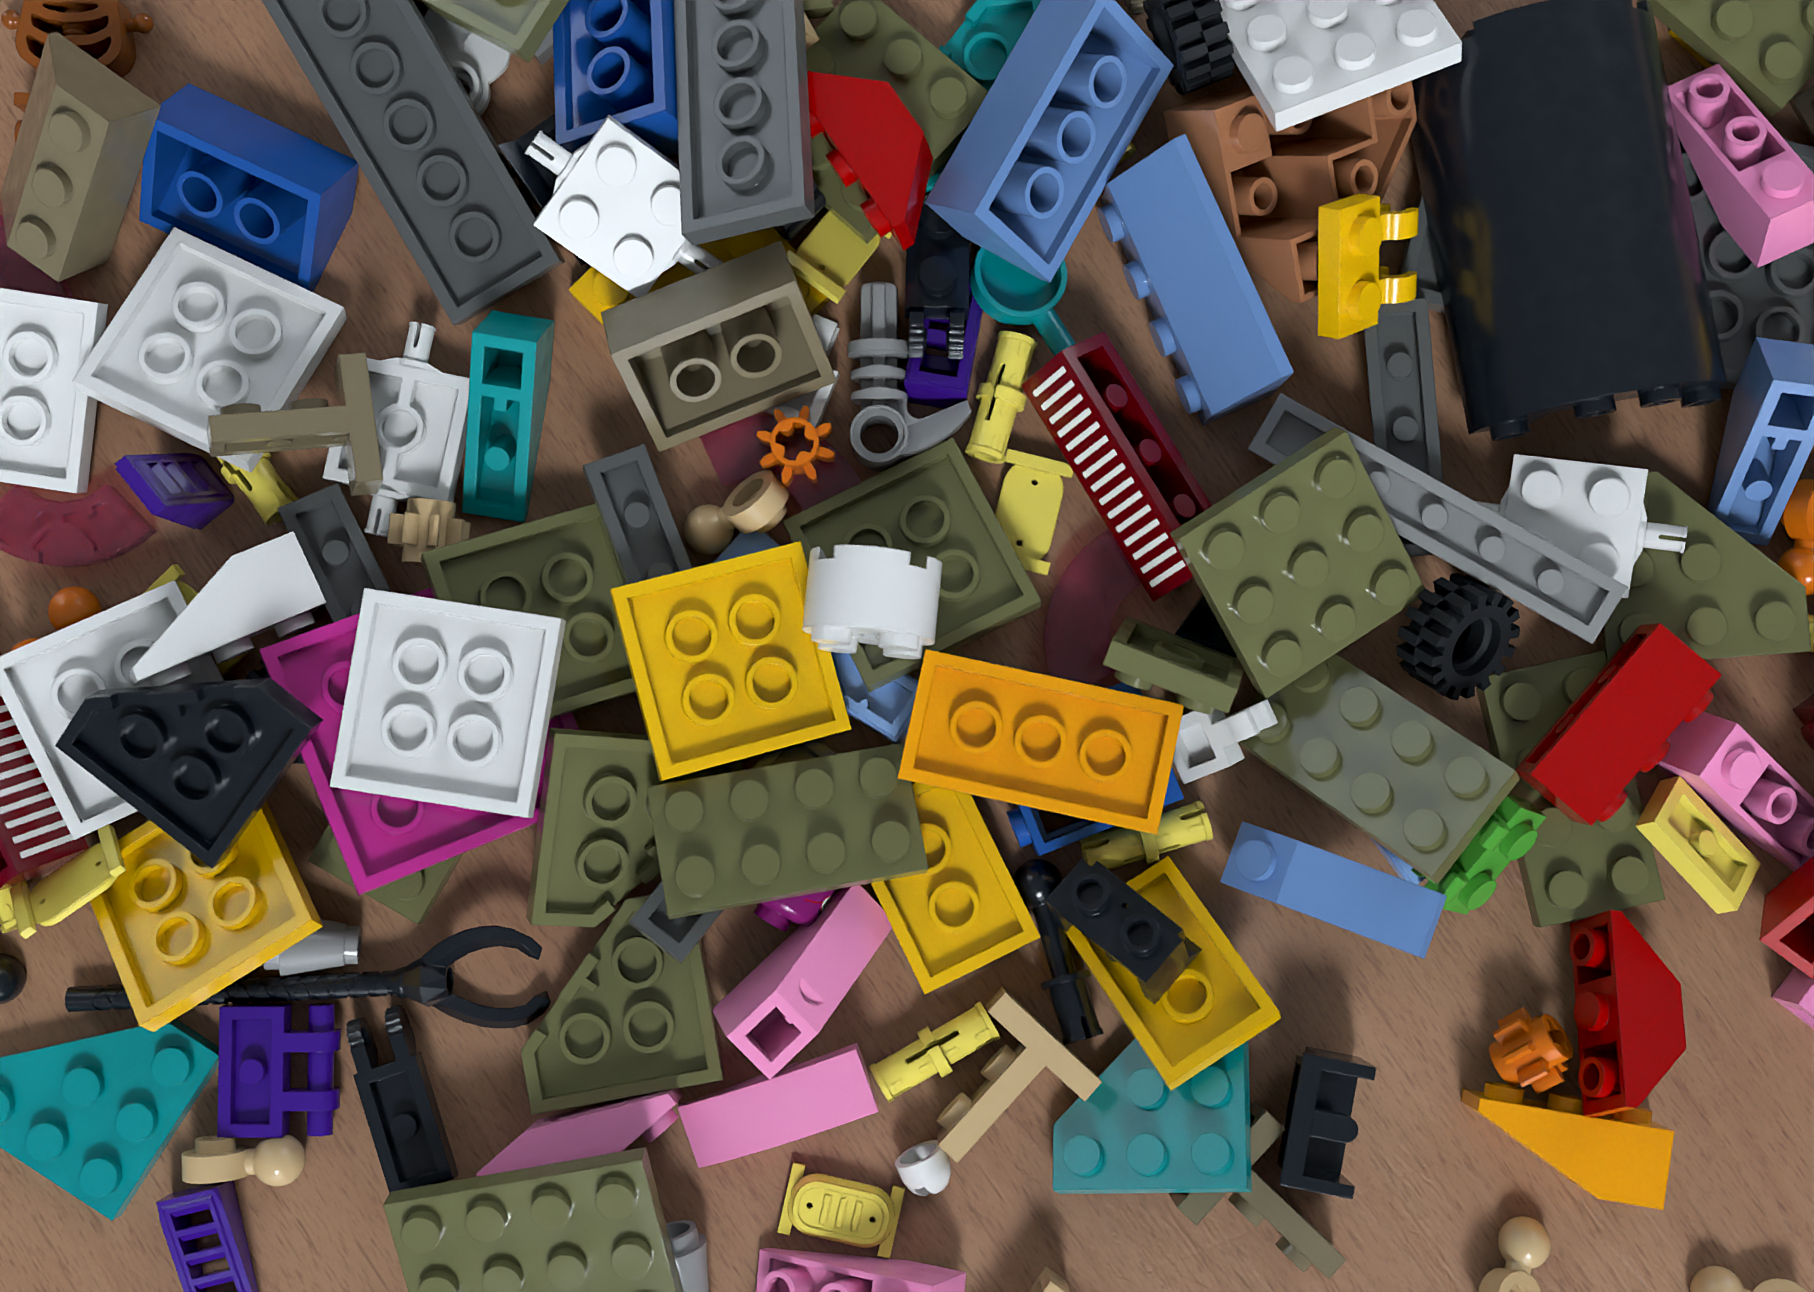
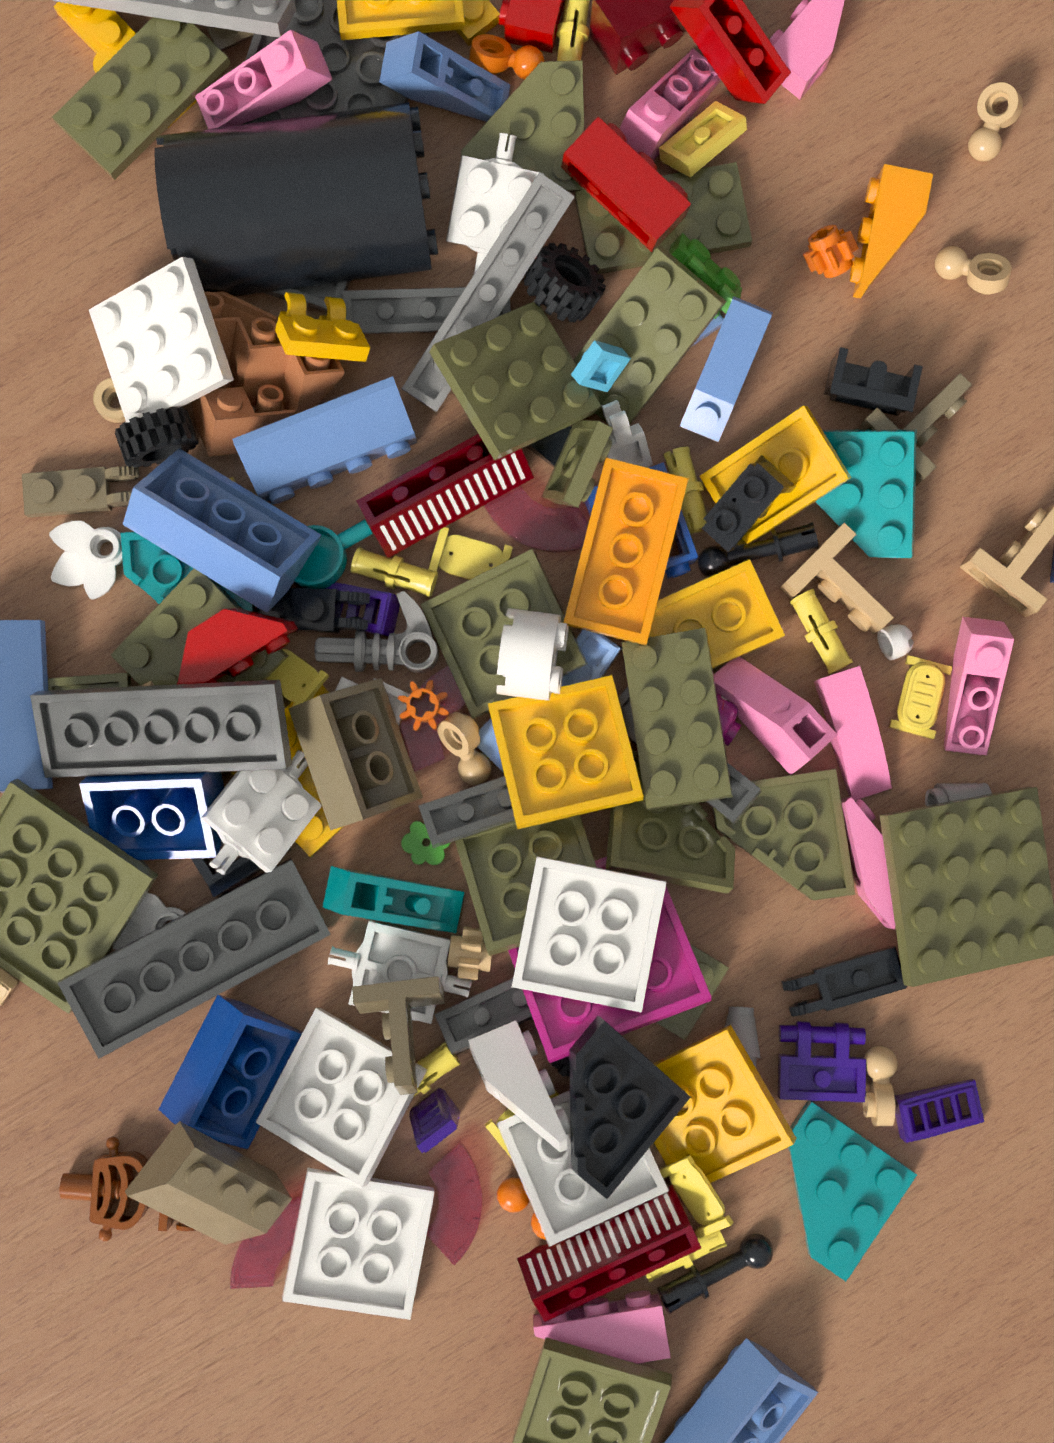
camera: 90 degrees left, 0 degrees up
(423, 981) = (766, 964): black piece -> none
(592, 444) = (413, 844): none -> bright green plant
(1326, 693) = (600, 366): none -> medium azure plate
(1624, 1013) = (809, 191): red slope -> none

